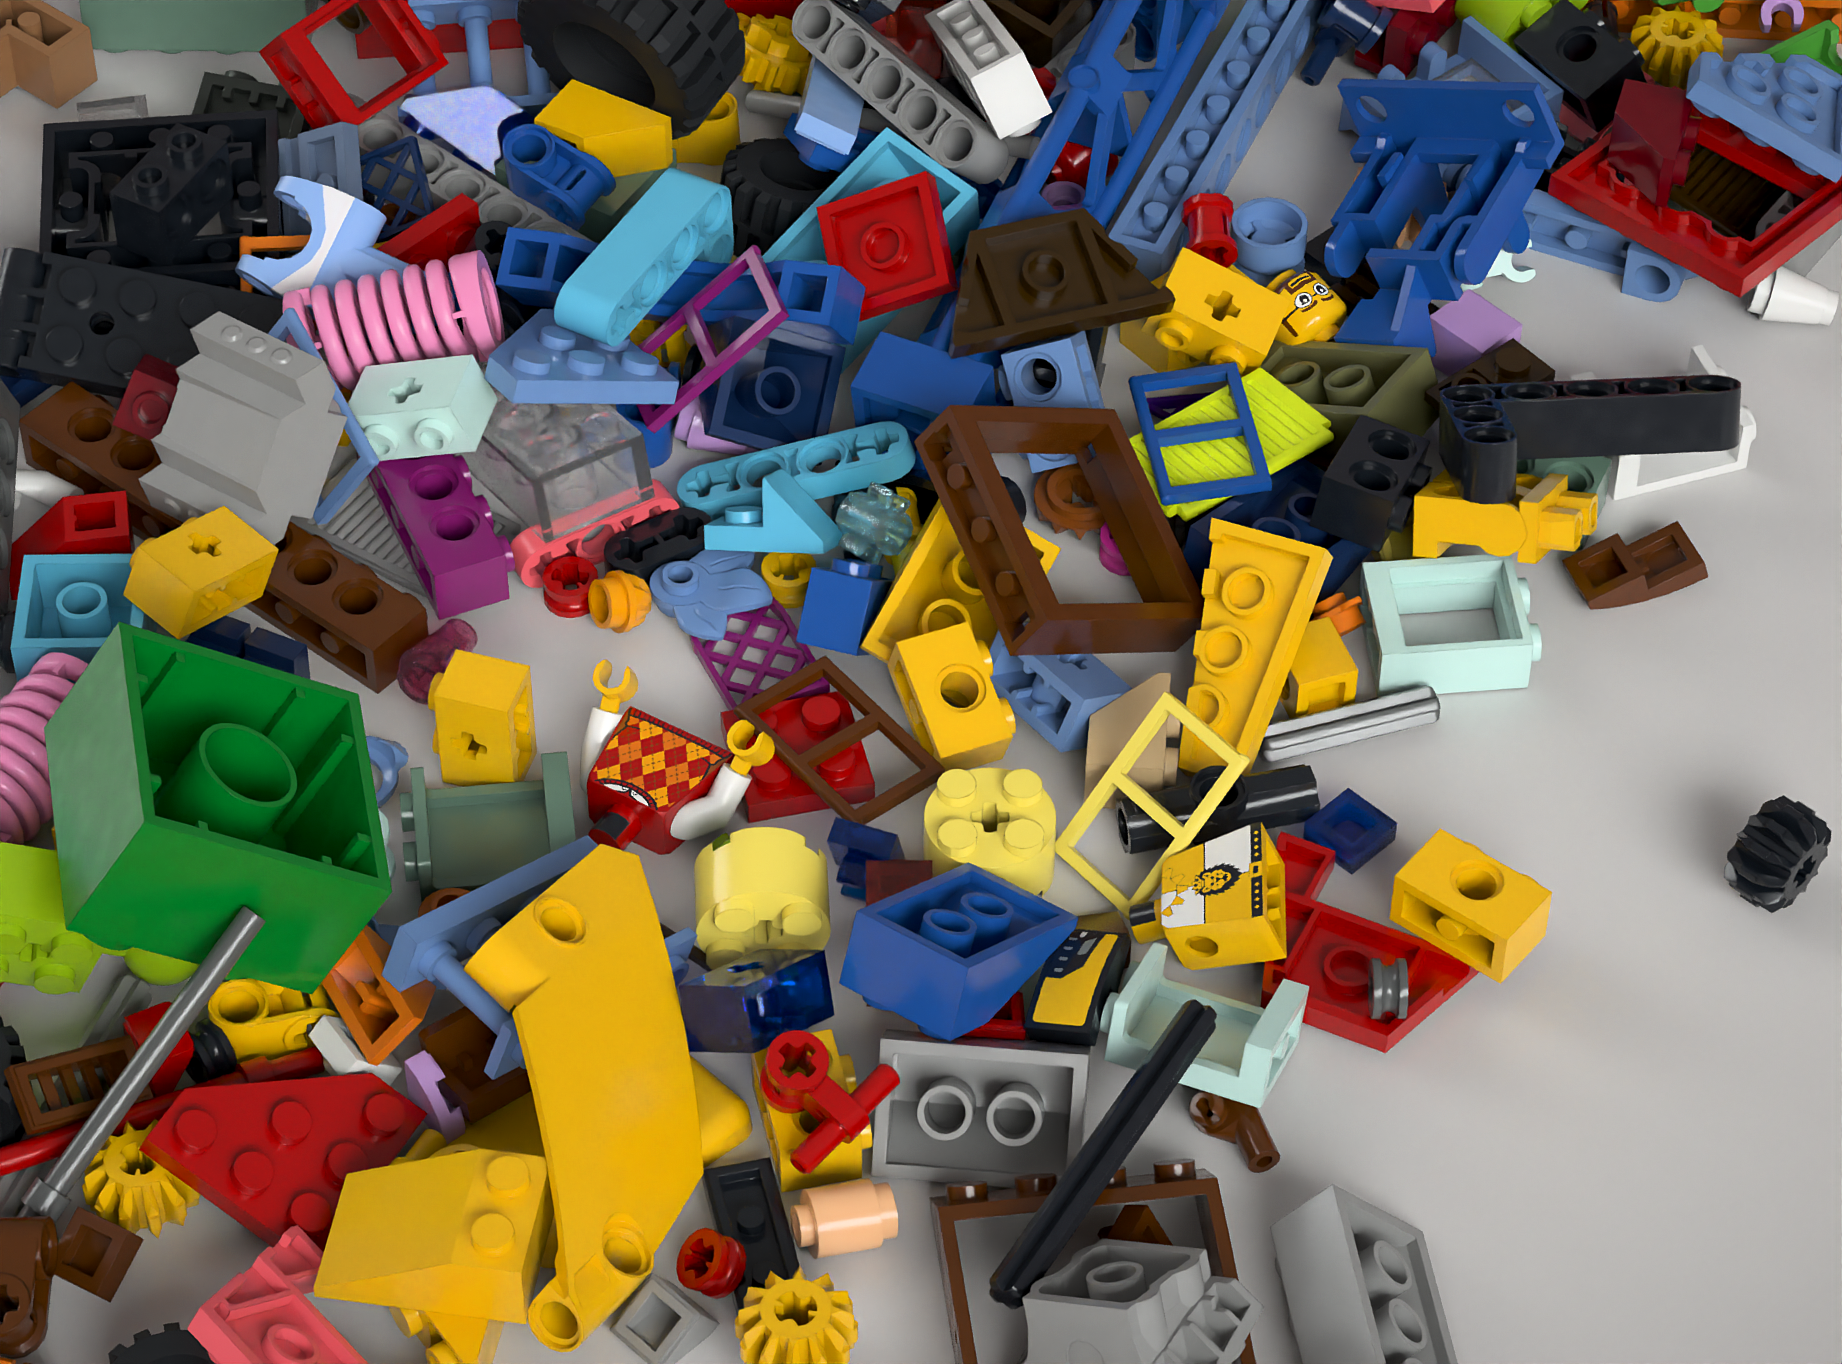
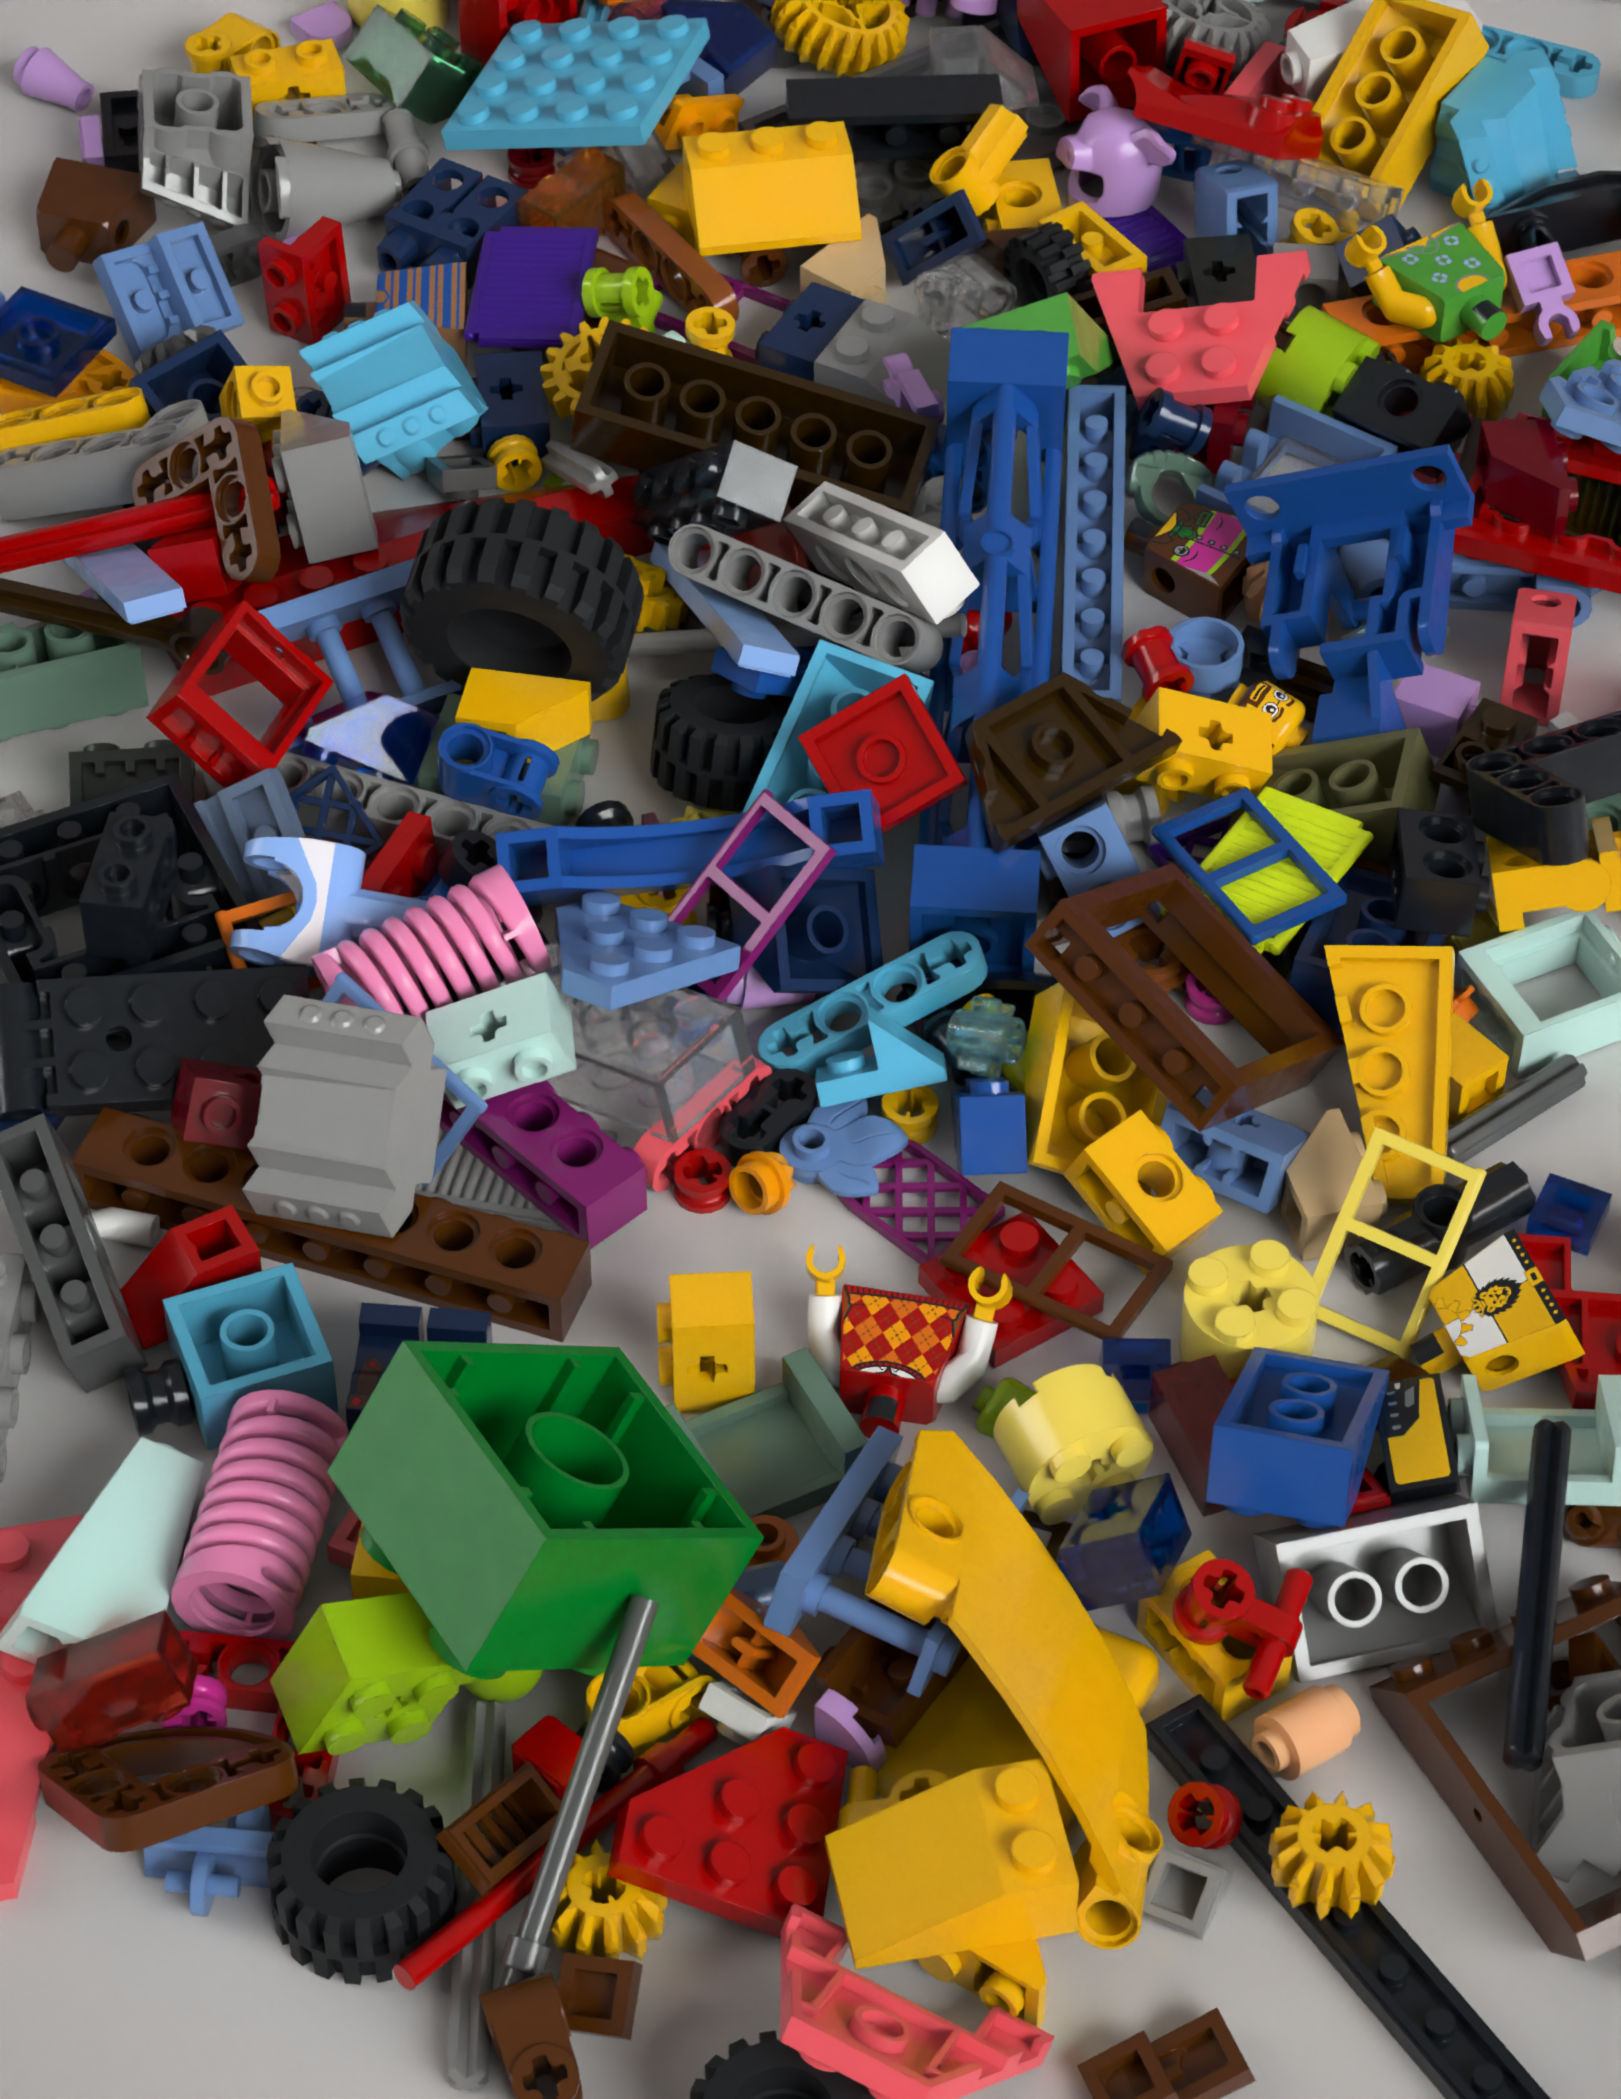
camera: 20 degrees left, 0 degrees up
(199, 571) = (357, 1266): yellow brick -> none
(432, 656) = (615, 1294): clear pink cone -> none
(644, 254) = (653, 828): medium azure beam -> none
(1128, 360) = (1136, 813): none -> light grey wheel
(1311, 59) = (1150, 466): none -> sand green piece
(1312, 152) = (1192, 560): none -> reddish brown torso
(1602, 294) = (1542, 641): none -> coral torso

